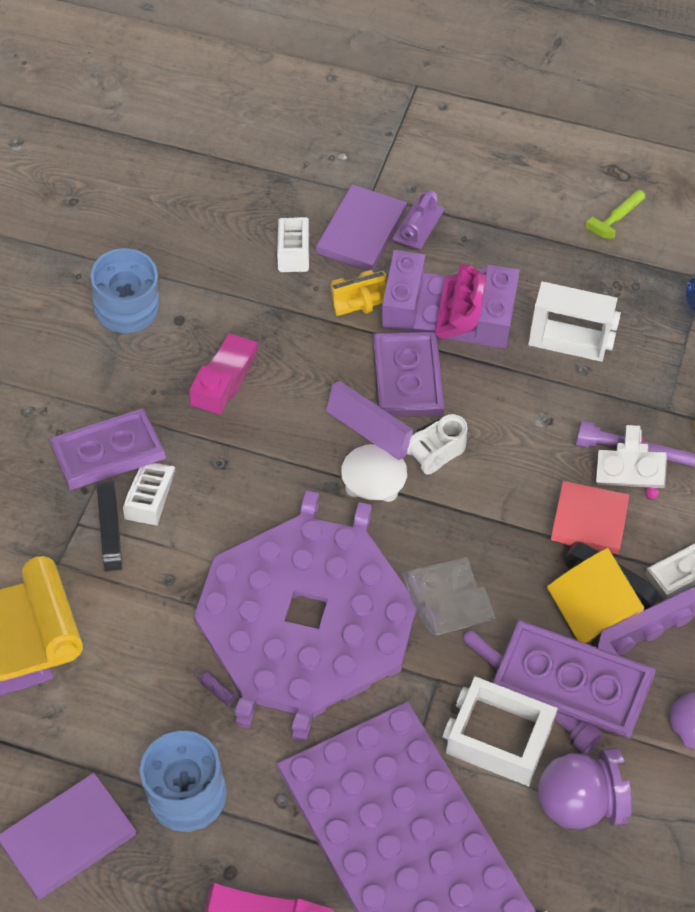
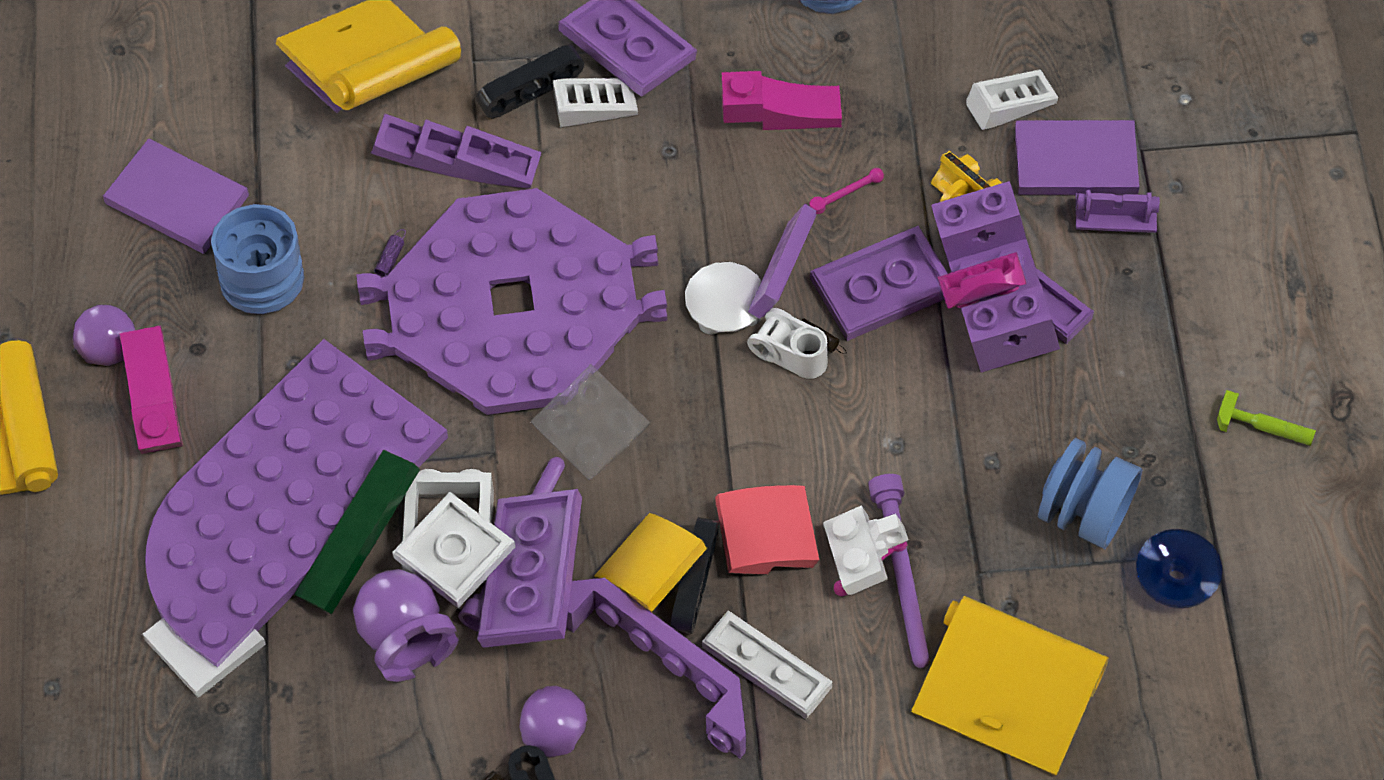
camera: 70 degrees right, 5 degrees up
(146, 604) = (461, 155): none -> medium lavender slope
(320, 387) = (819, 204): none -> dark pink hinge
(484, 797) = (357, 531): none -> dark green tile
(539, 725) = (454, 549): none -> white tile
(572, 338) = (1031, 413): white window -> none
(652, 313) = (1089, 493): none -> medium blue wheel

